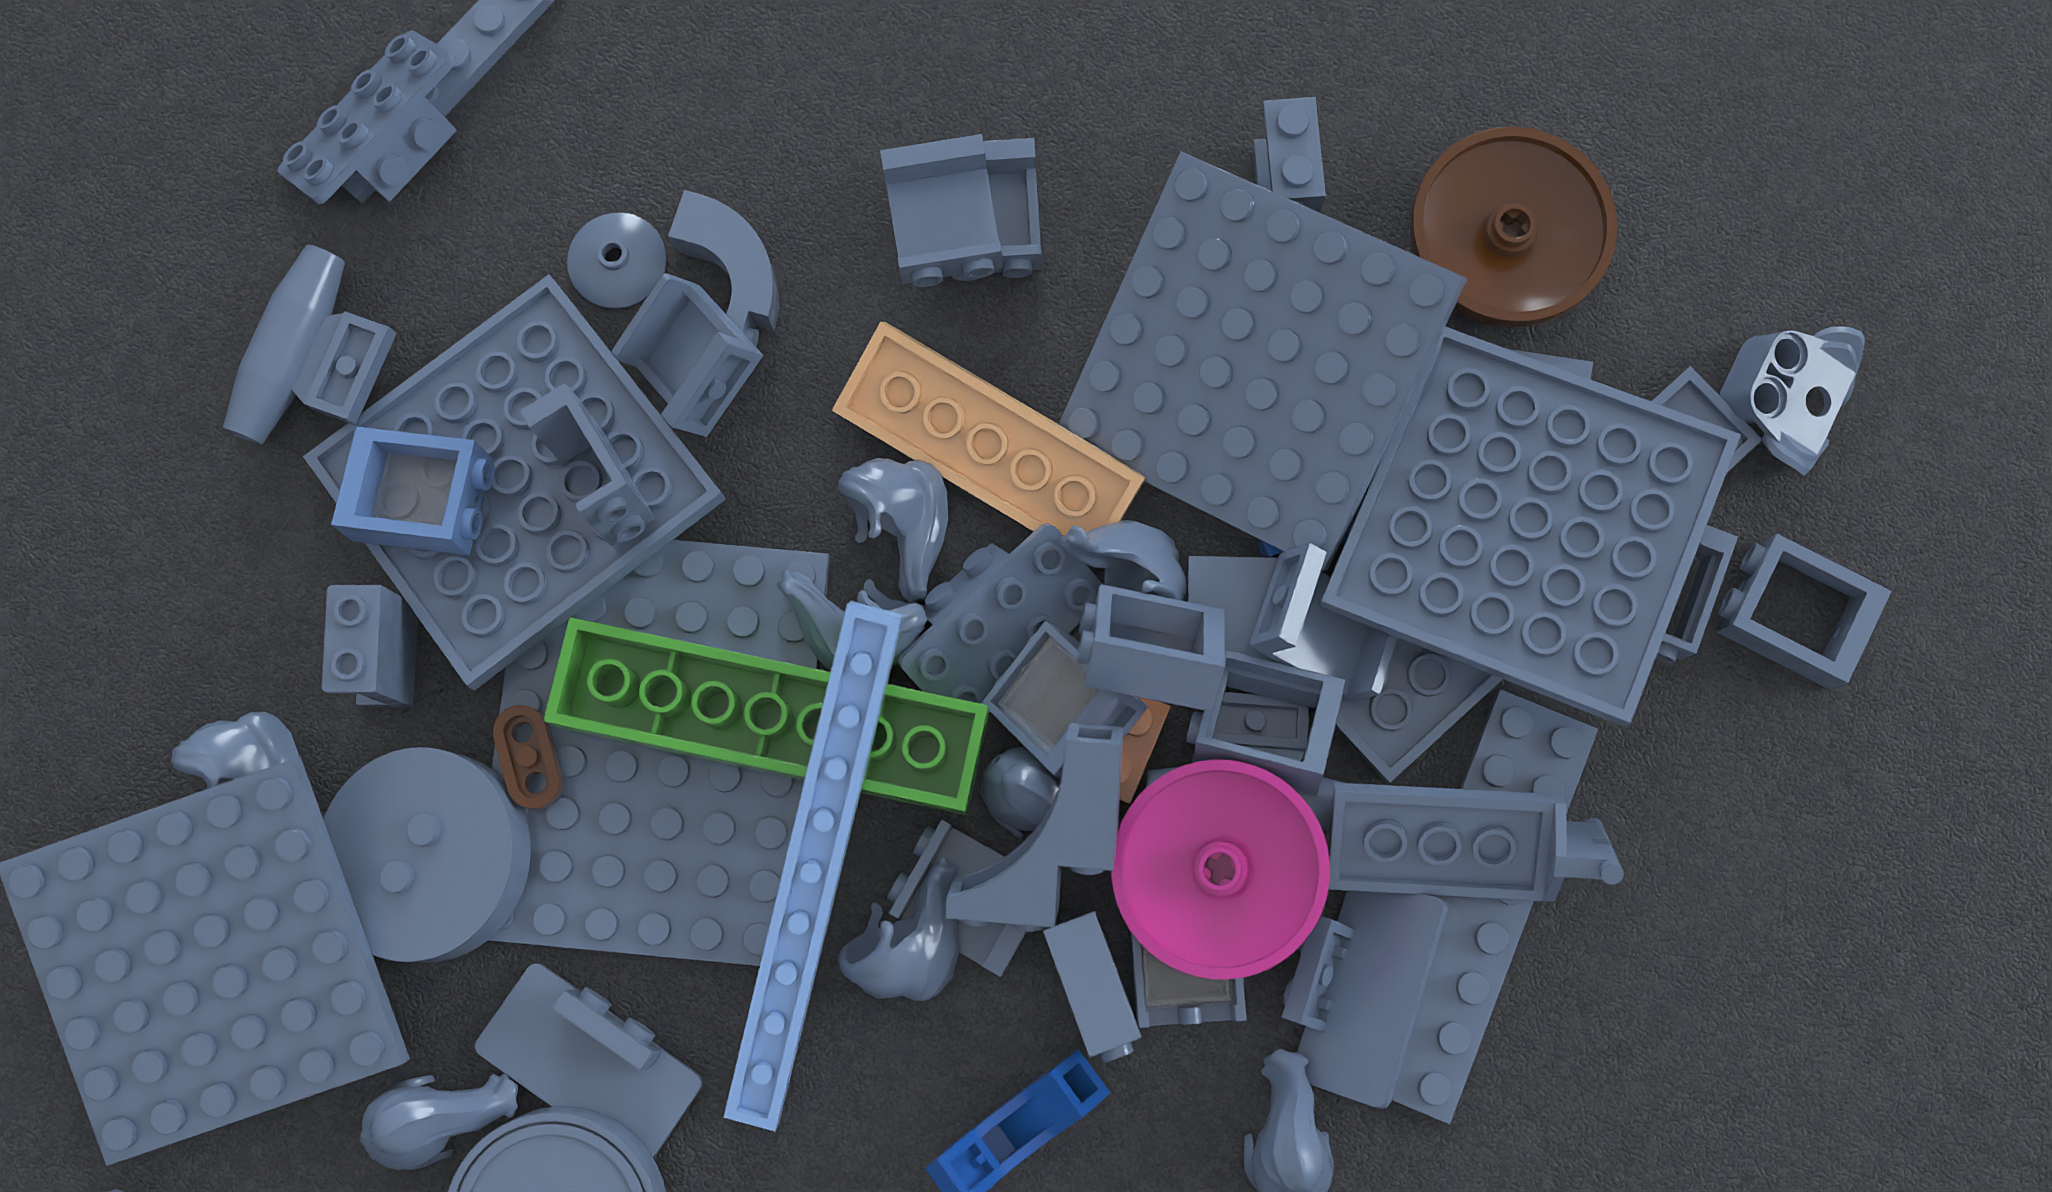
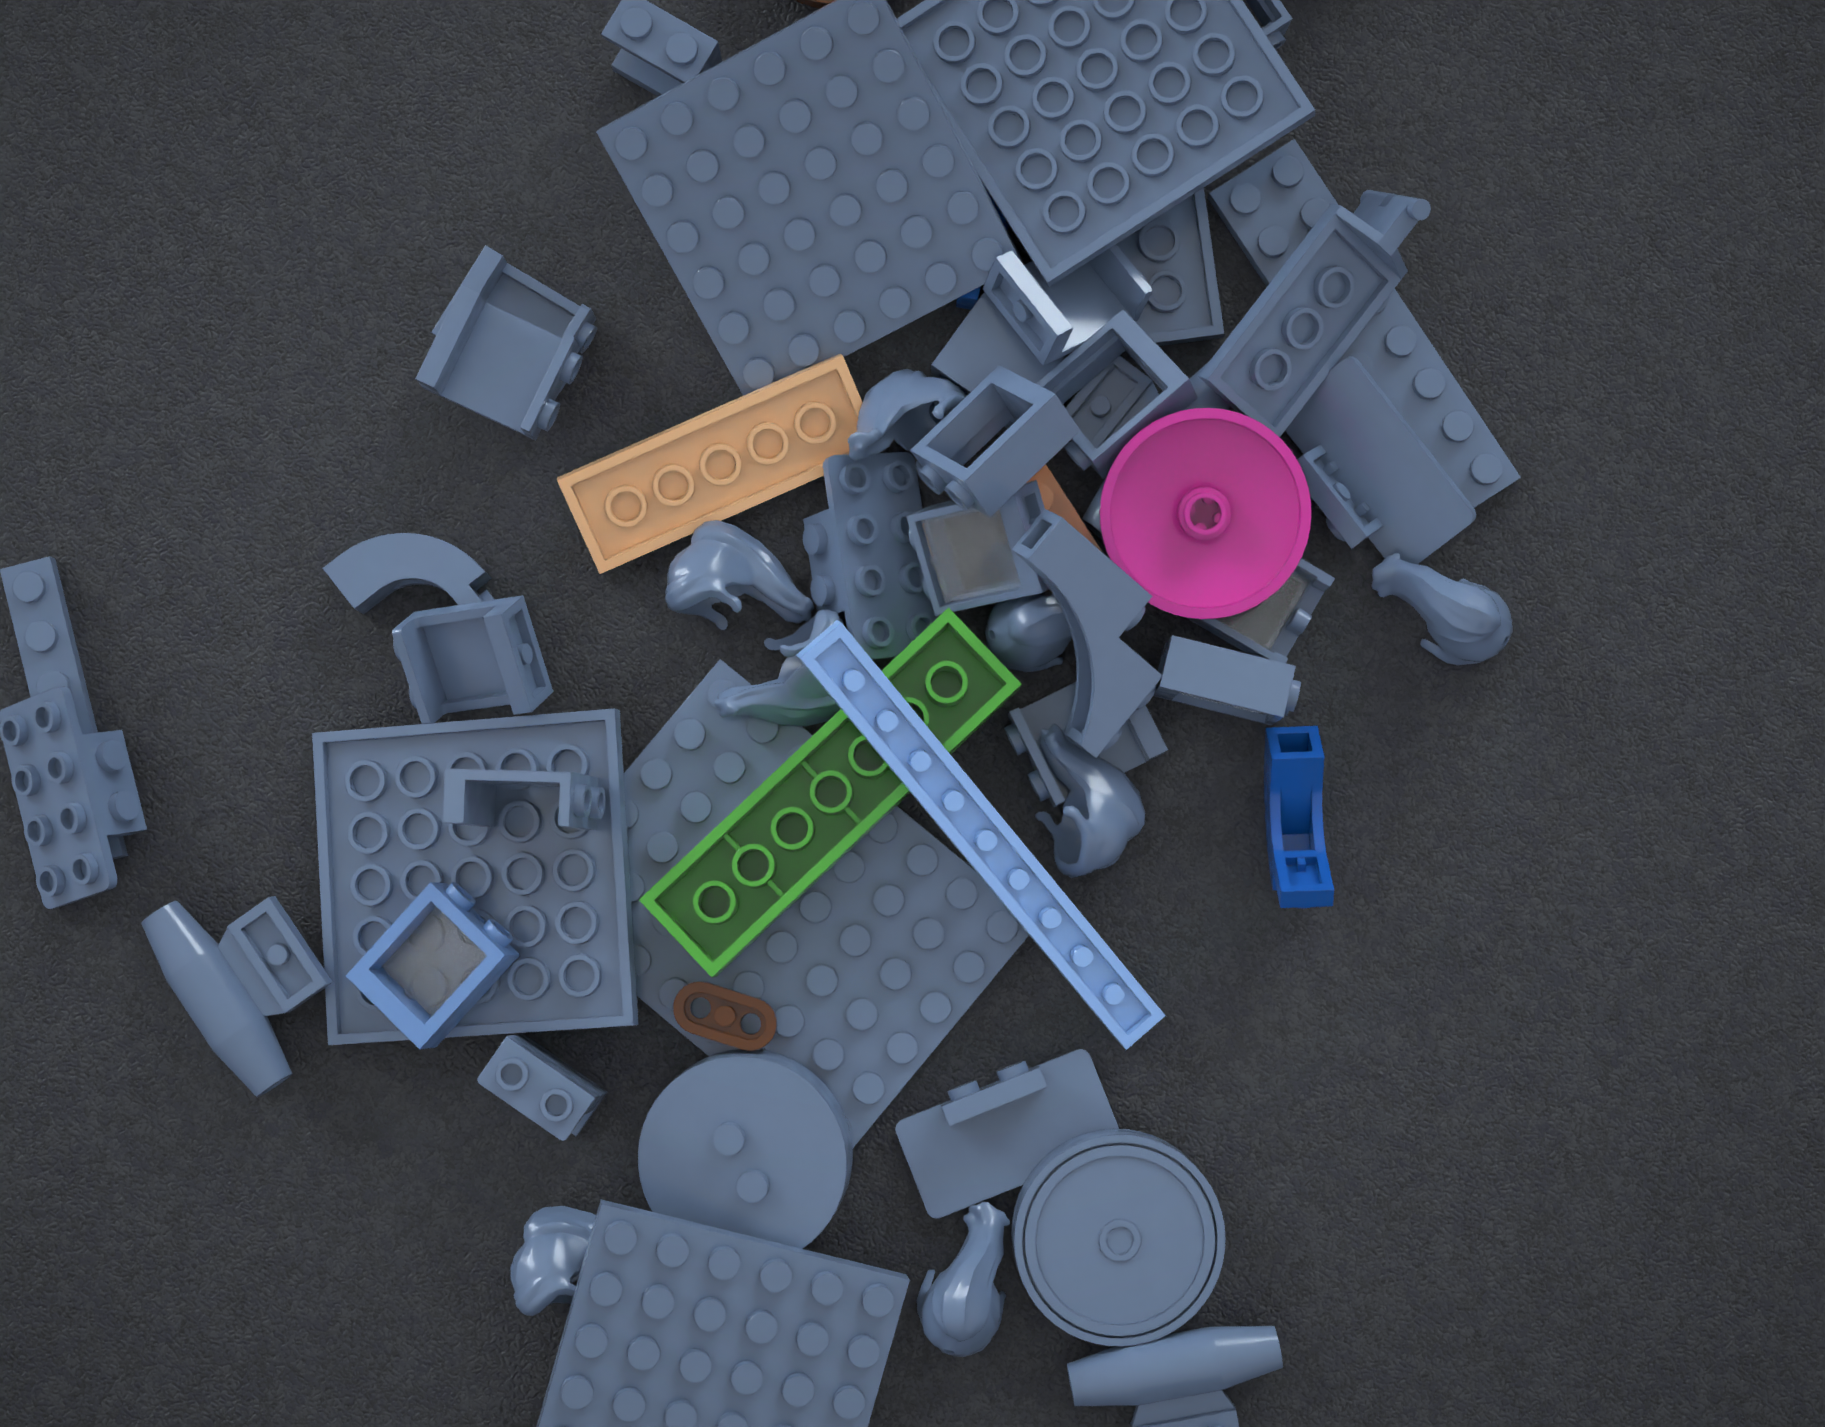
camera: 60 degrees left, 5 degrees up
(620, 282) = (361, 674): sand blue dish -> none

